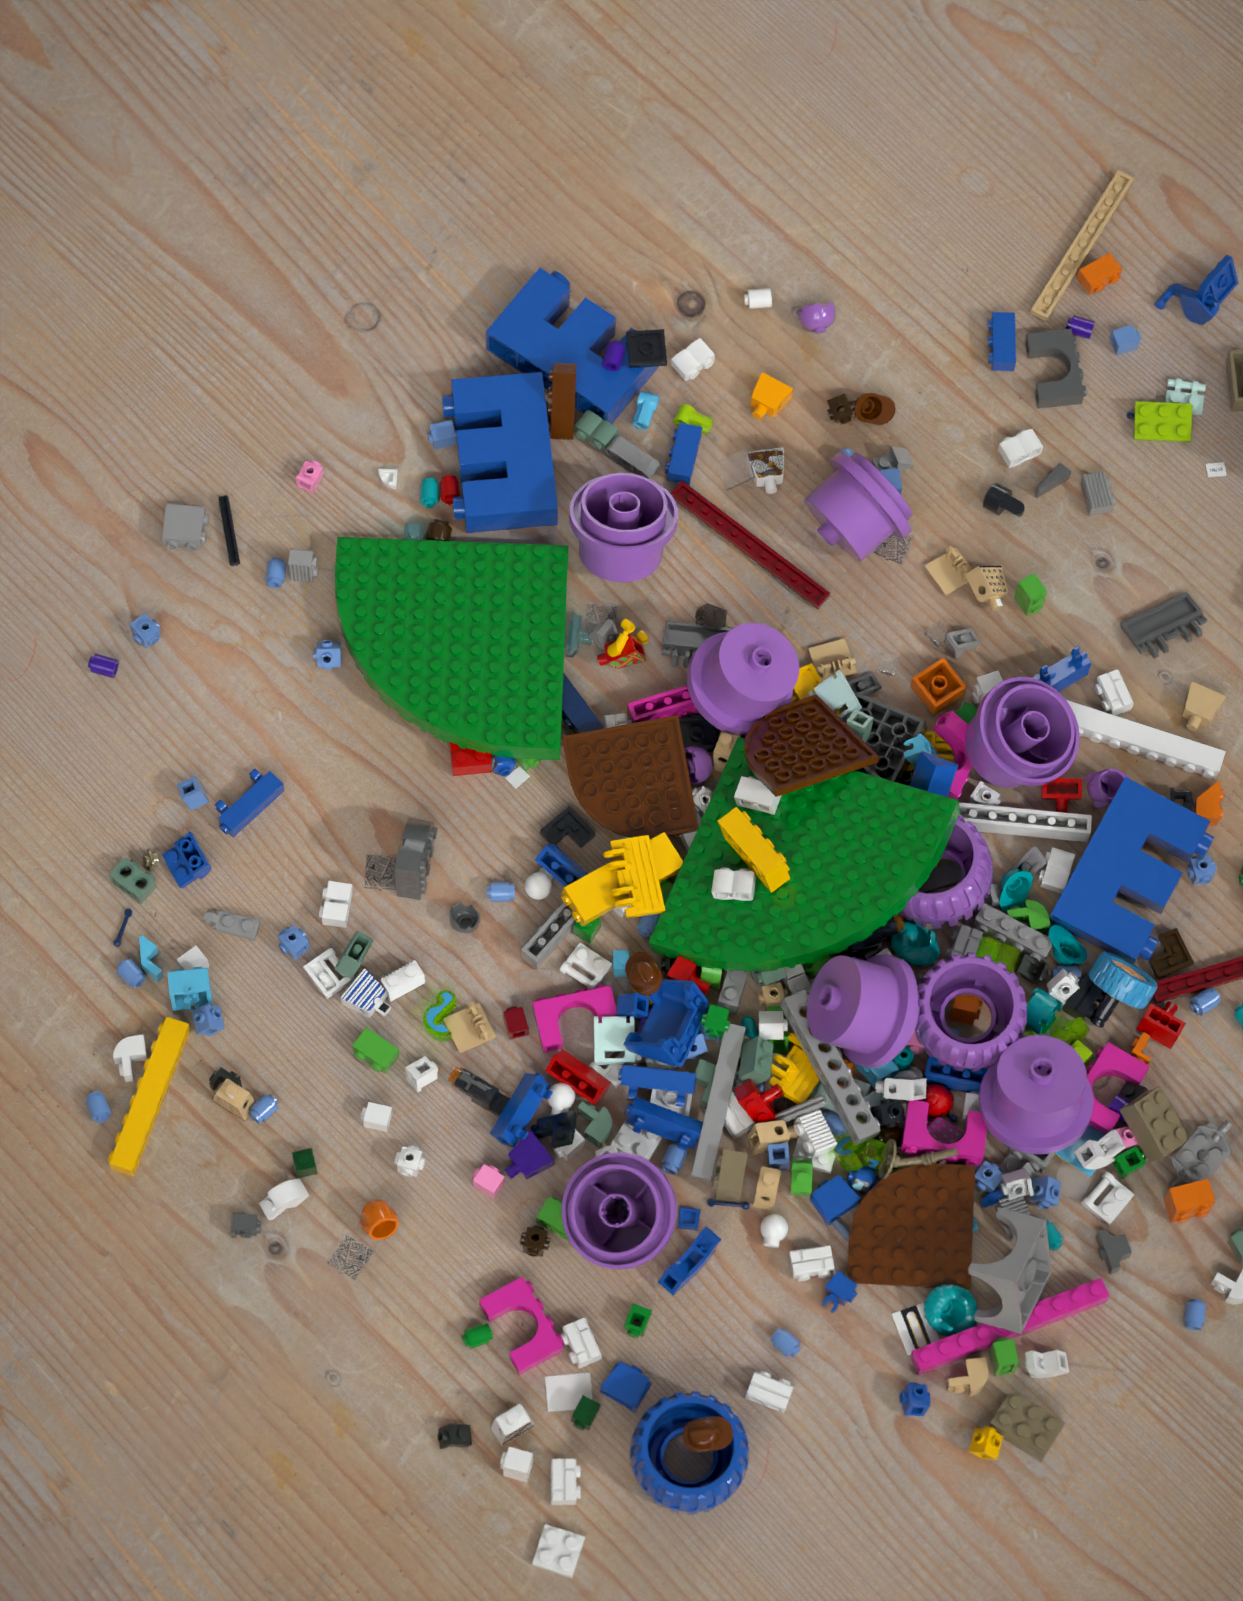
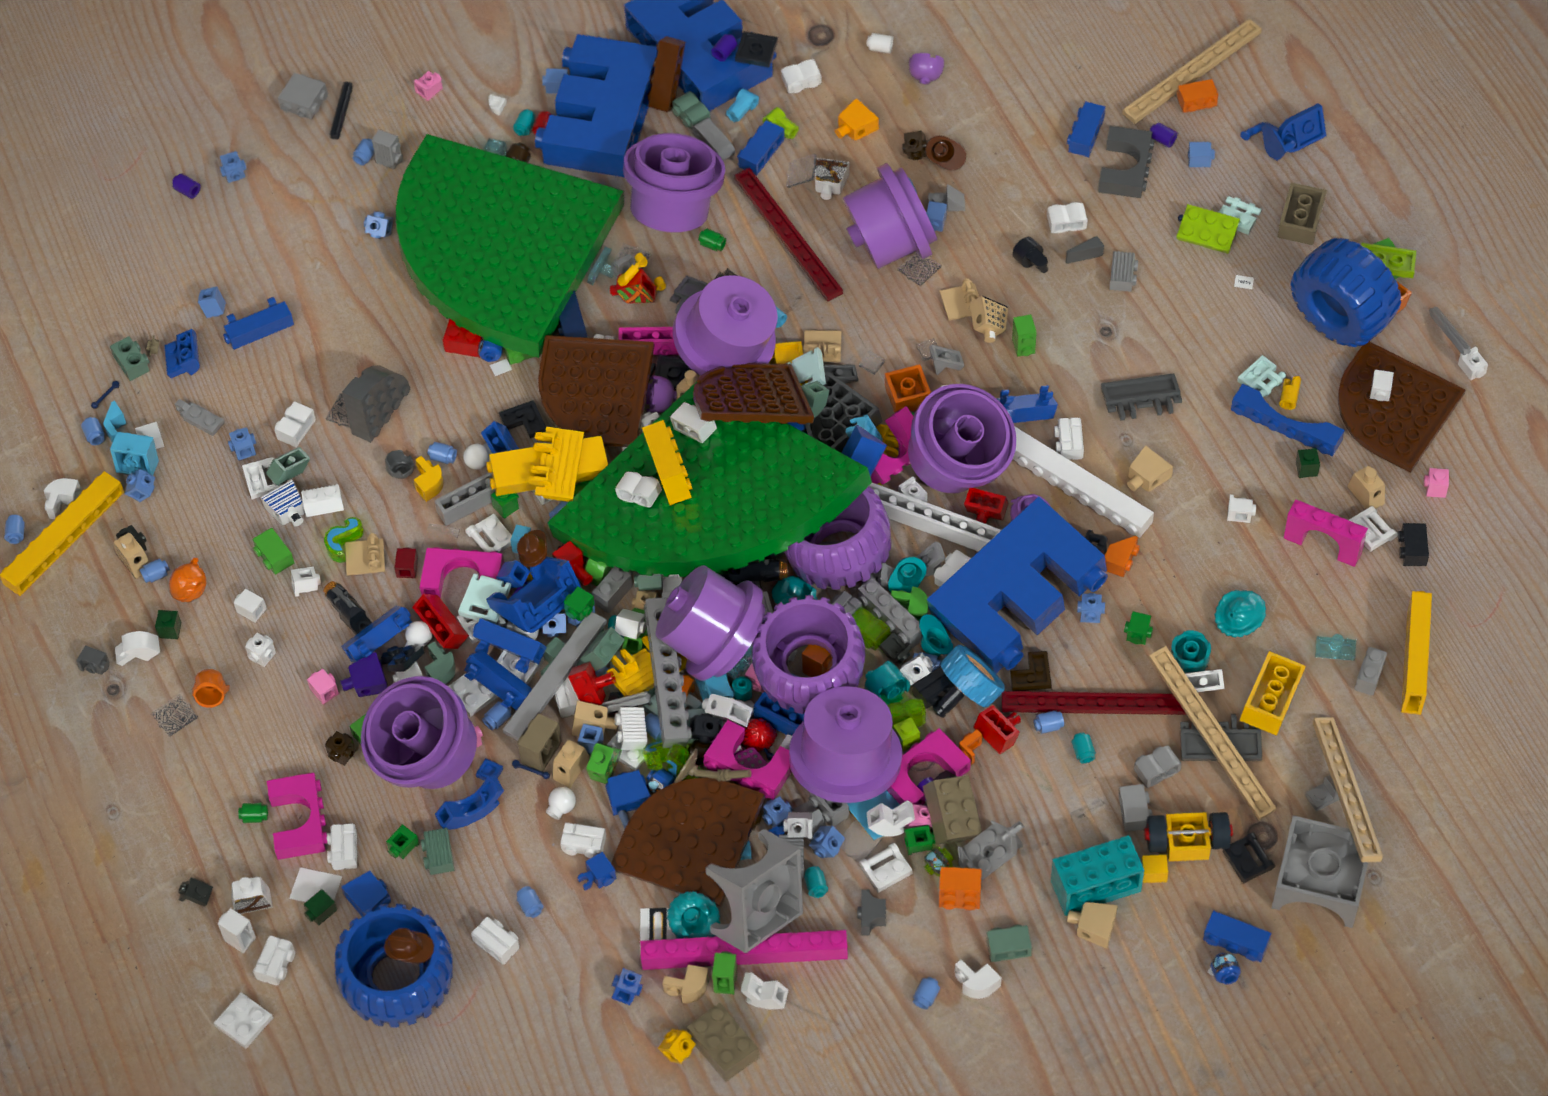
camera: 25 degrees right, 10 degrees down
(305, 1111) = (187, 582): none -> orange helmet
(503, 924) = (430, 481): none -> yellow brick
(676, 573) = (712, 240): none -> green brick
(676, 1319) = (438, 851): none -> sand green brick
(1156, 1178) = (936, 859): none -> head

